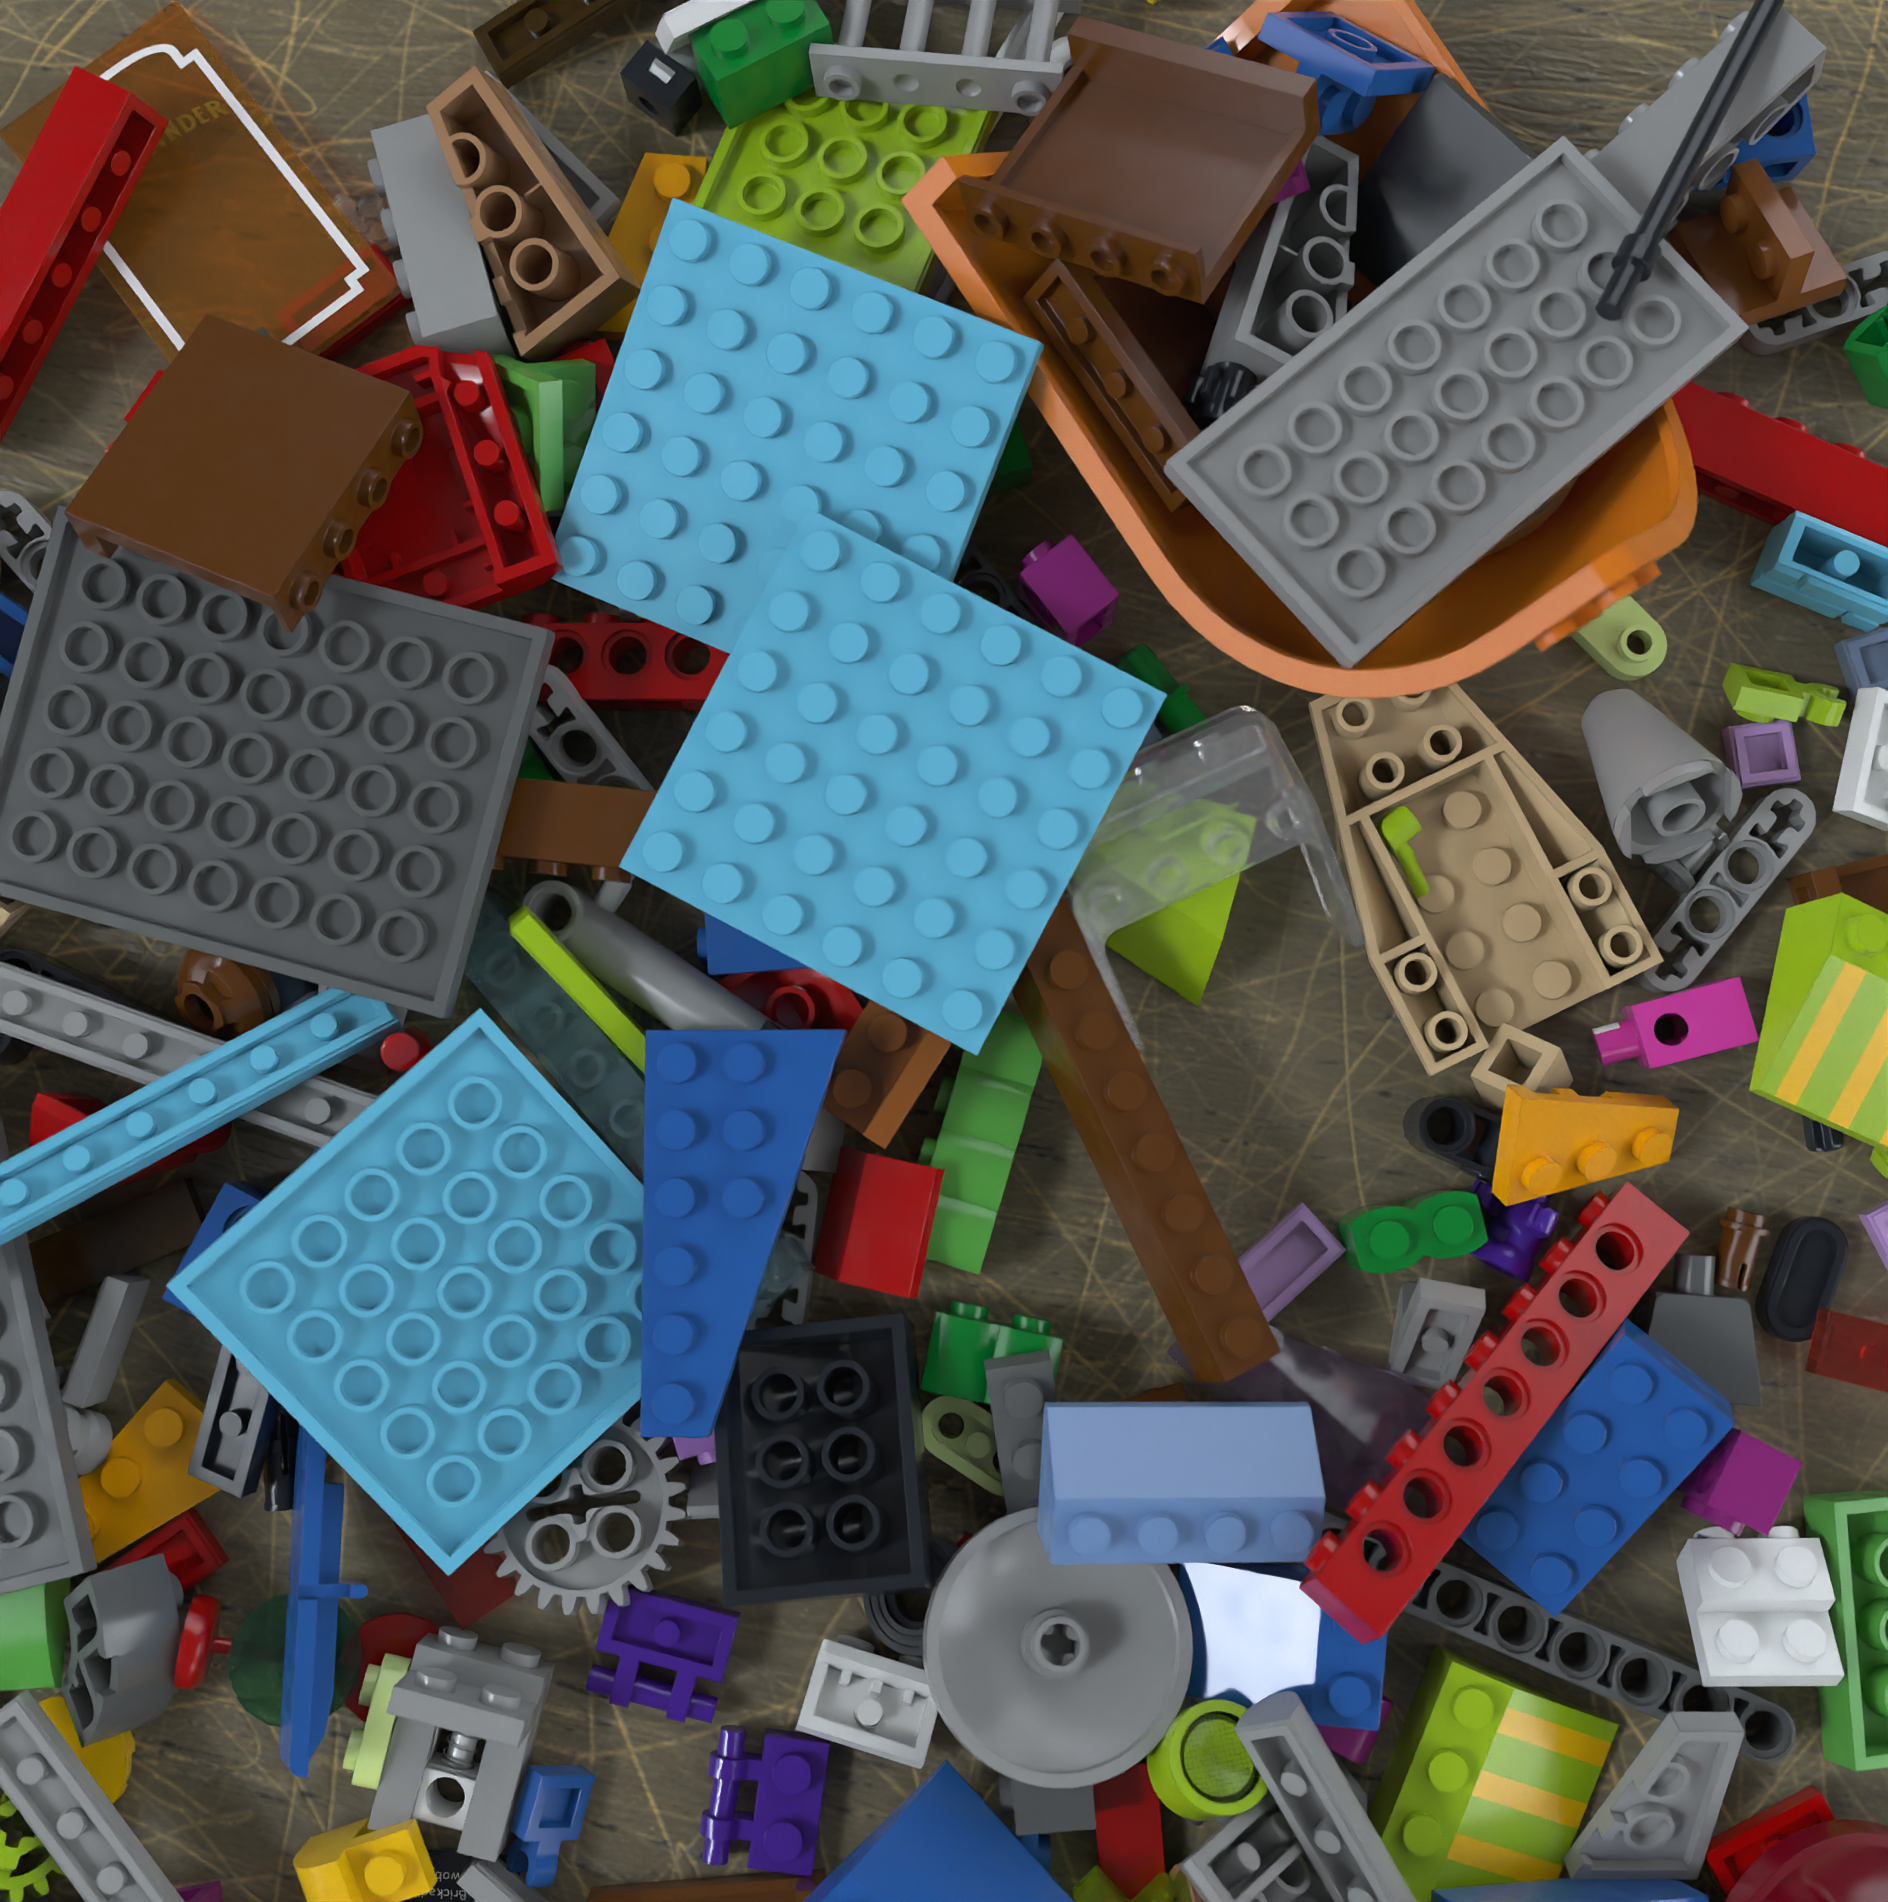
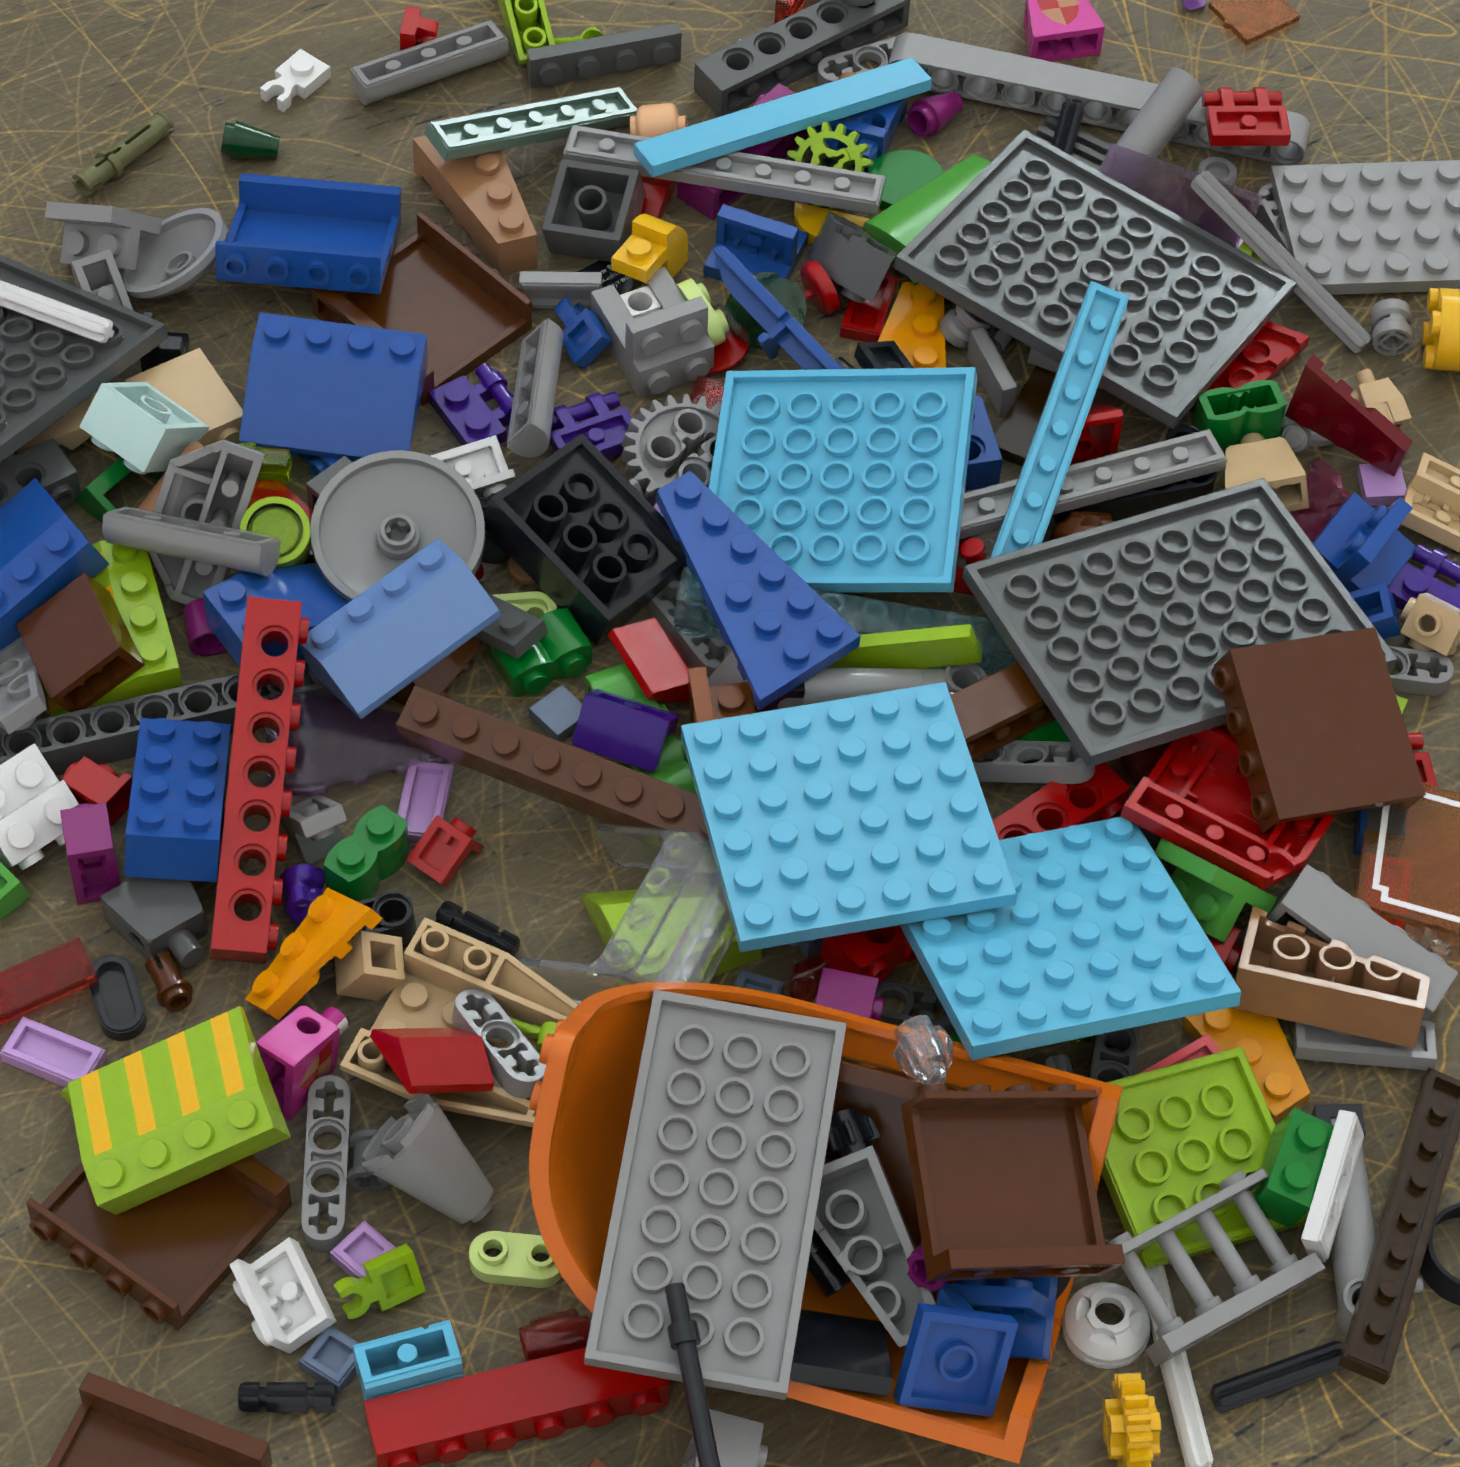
camera: 135 degrees right, 30 degrees down
(216, 1779) = (756, 243): none -> blue bracket
(688, 1760) = (535, 390): none -> light grey brick
(1004, 1149) = (623, 729): none -> dark purple panel
(1031, 1264) = (557, 713): none -> sand blue tile
(1096, 382) = (923, 1050): none -> clear rock
(1308, 1177) = (444, 849): none -> red bracket
(1350, 1047) = (476, 927): none -> black axle
(1456, 808) = (499, 1025): none -> light grey beam
(1550, 1792) = (80, 644): none -> reddish brown brick
(1566, 878) = (436, 1059): none -> red slope
(1651, 1578) = (99, 784): none -> red brick

